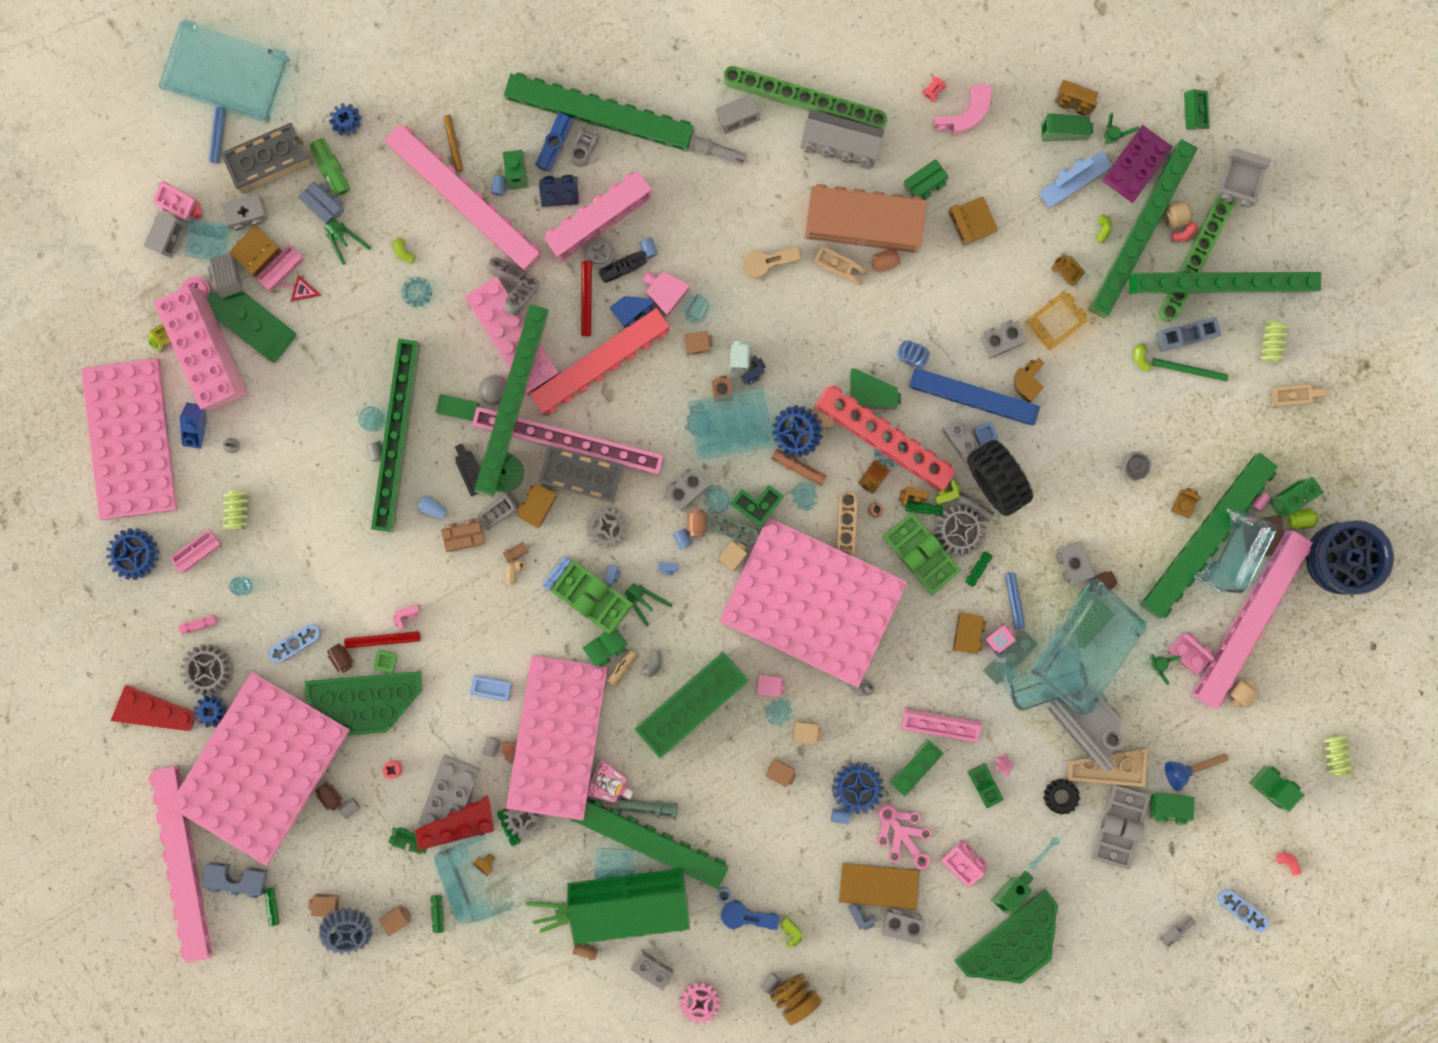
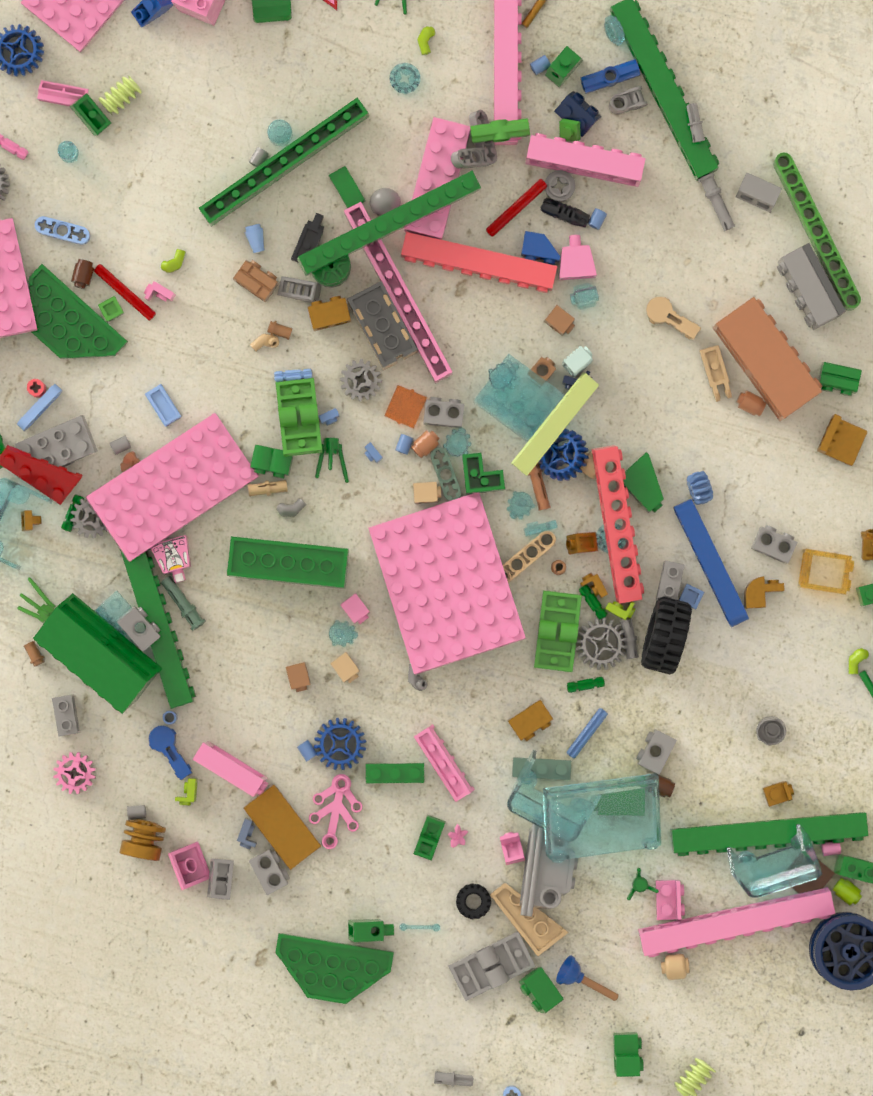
camera: 45 degrees right, 0 degrees up
(229, 544) = (90, 114): none -> green slope
(231, 449) = (161, 51): light grey hinge -> none
(395, 585) = (173, 264): none -> lime arm
(408, 777) = (39, 407): none -> light blue beam
(519, 257) = (500, 130): none -> bright green piece
(523, 108) = (614, 30): none -> clear light blue gear
(565, 207) = (569, 129): none -> bright green plate
(646, 112) = (695, 123): none -> light grey axle
(649, 863) = (141, 639): none -> light grey brick
(656, 512) = (405, 406): none -> clear orange piece
(770, 416) = (555, 424): none -> yellowish green tile
(805, 887) = (231, 769): none -> bright pink window
(831, 501) = (535, 528): none -> clear light blue plate
(845, 981) = (189, 865): none -> bright pink slope
(876, 967) = (220, 878): none -> light grey brick
(965, 863) = (357, 875): bright pink bracket -> none
(1000, 638) = (548, 748): bright pink brick -> none
(1049, 733) = (512, 848): none -> bright pink bracket

